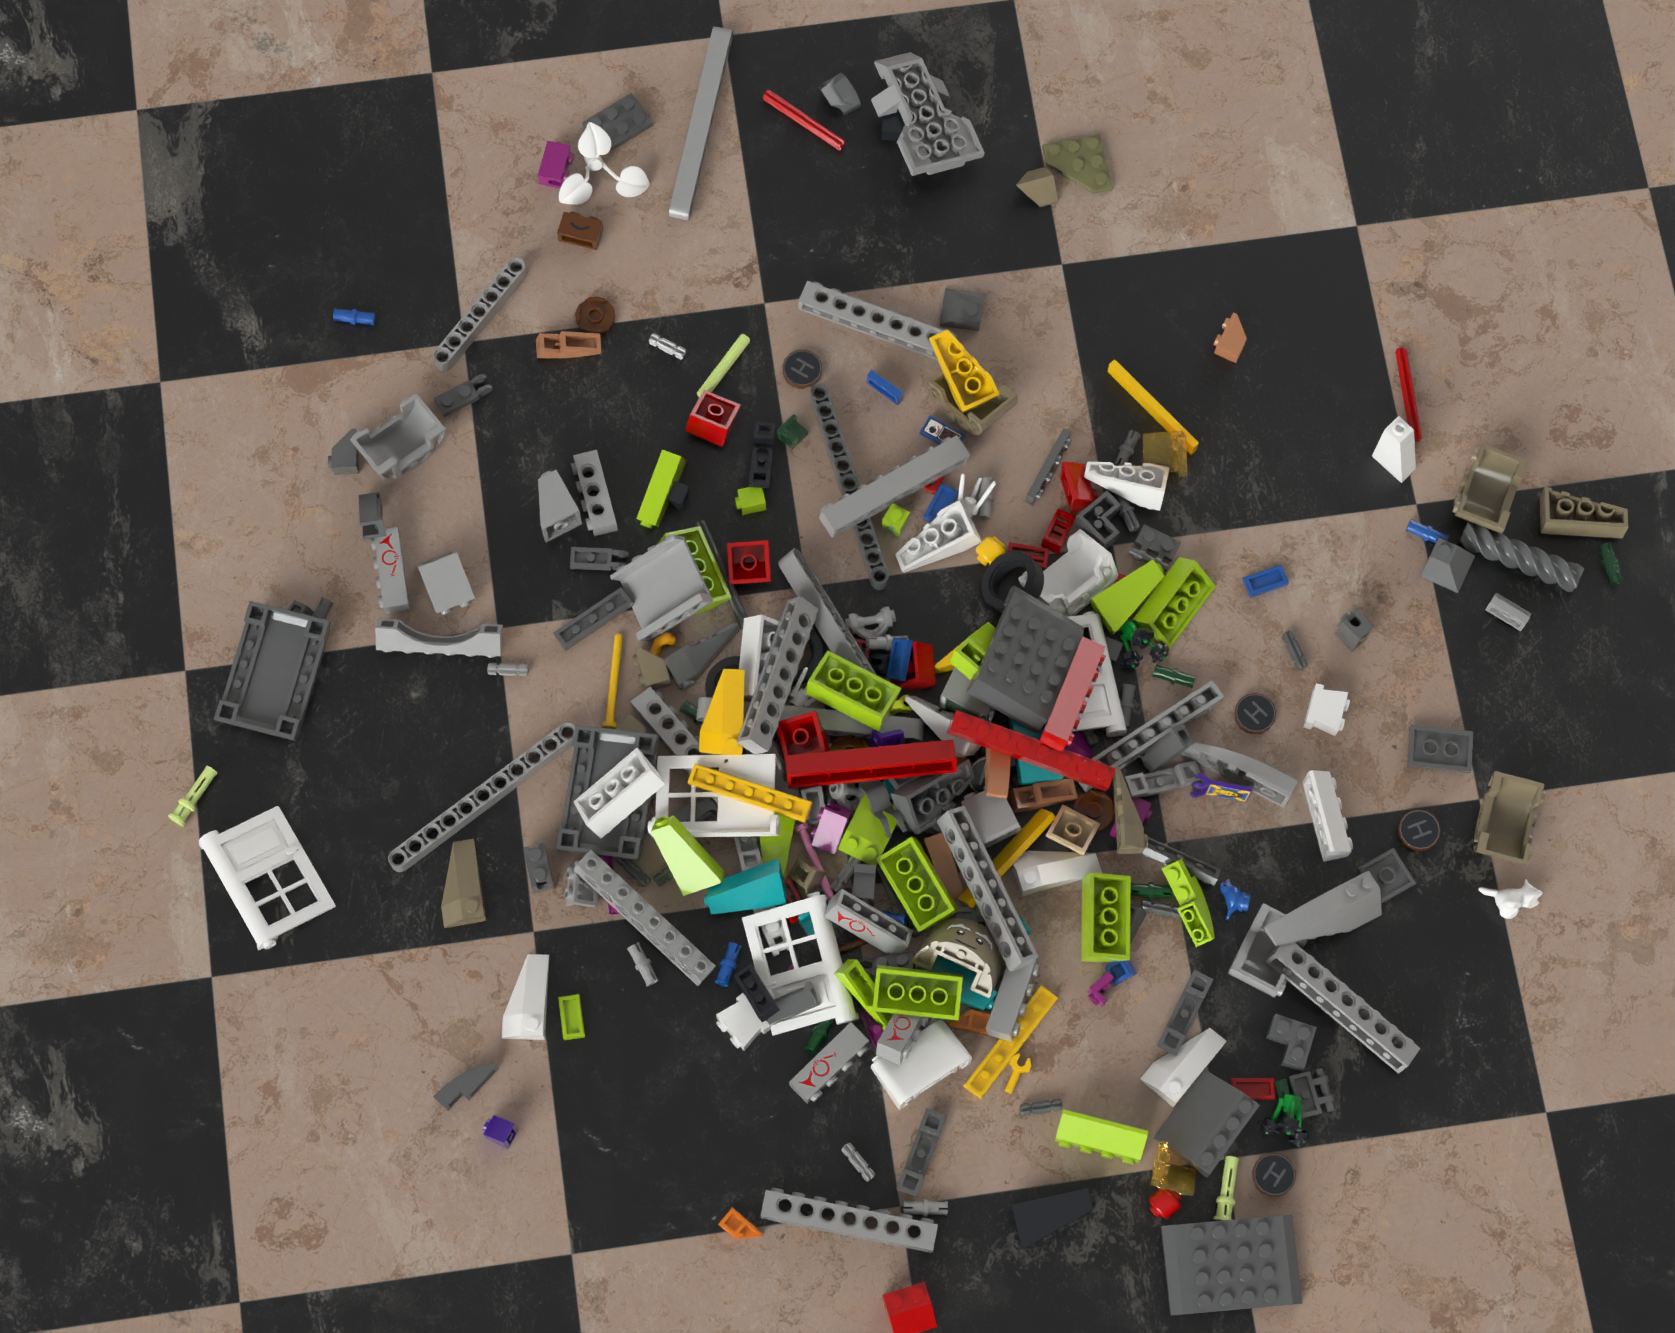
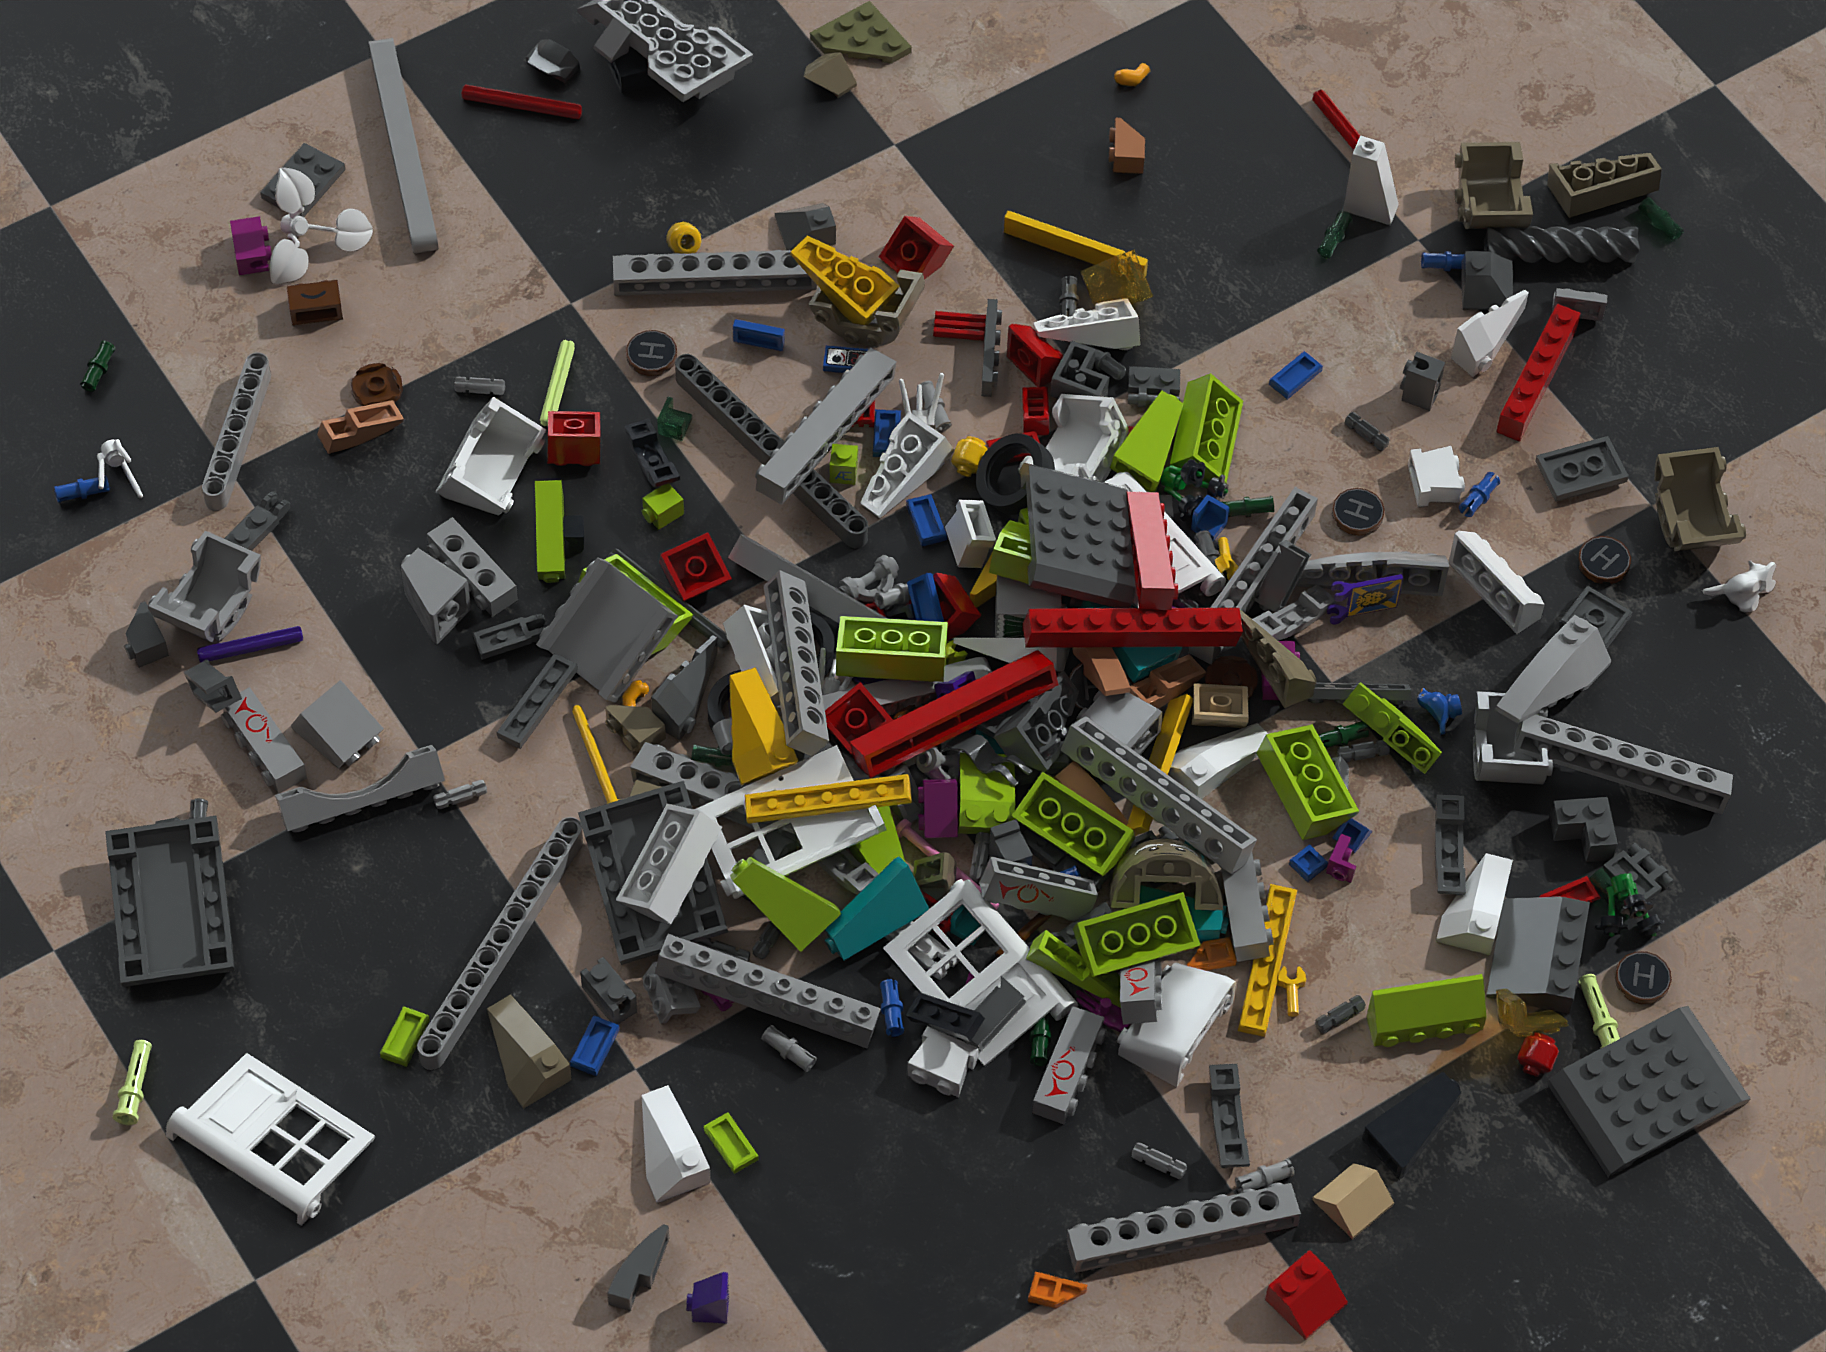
camera: 25 degrees left, 15 degrees down
(387, 300) = (115, 455): none -> white plant
(388, 839) = (404, 1036): none -> lime tile
(407, 220) = (97, 366): none -> dark green pin
(416, 489) = (250, 644): none -> dark purple axle
(513, 902) = (594, 1045): none -> blue tile
(646, 412) = (491, 458): none -> white windscreen
(866, 285) = (691, 241): none -> yellow head
(936, 588) = (926, 520): none -> blue tile
(958, 617) = (970, 534): none -> white hips
(980, 1252) = (1355, 1199): none -> tan slope
(1025, 424) = (959, 322): none -> red tile
(1033, 362) = (916, 247): none -> red slope
(1077, 979) = (1308, 863): none -> blue tile
(1135, 715) = (1224, 561): none -> yellow bar
(1141, 675) = (1210, 516): none -> blue panel
(1267, 279) = (1132, 77): none -> light orange arm
(1352, 738) = (1479, 494): none -> blue pin
(1353, 475) = (1334, 234): none -> clear green pin
(1417, 612) = (1483, 335): none -> white wedge
(1447, 656) = (1538, 372): none -> red brick

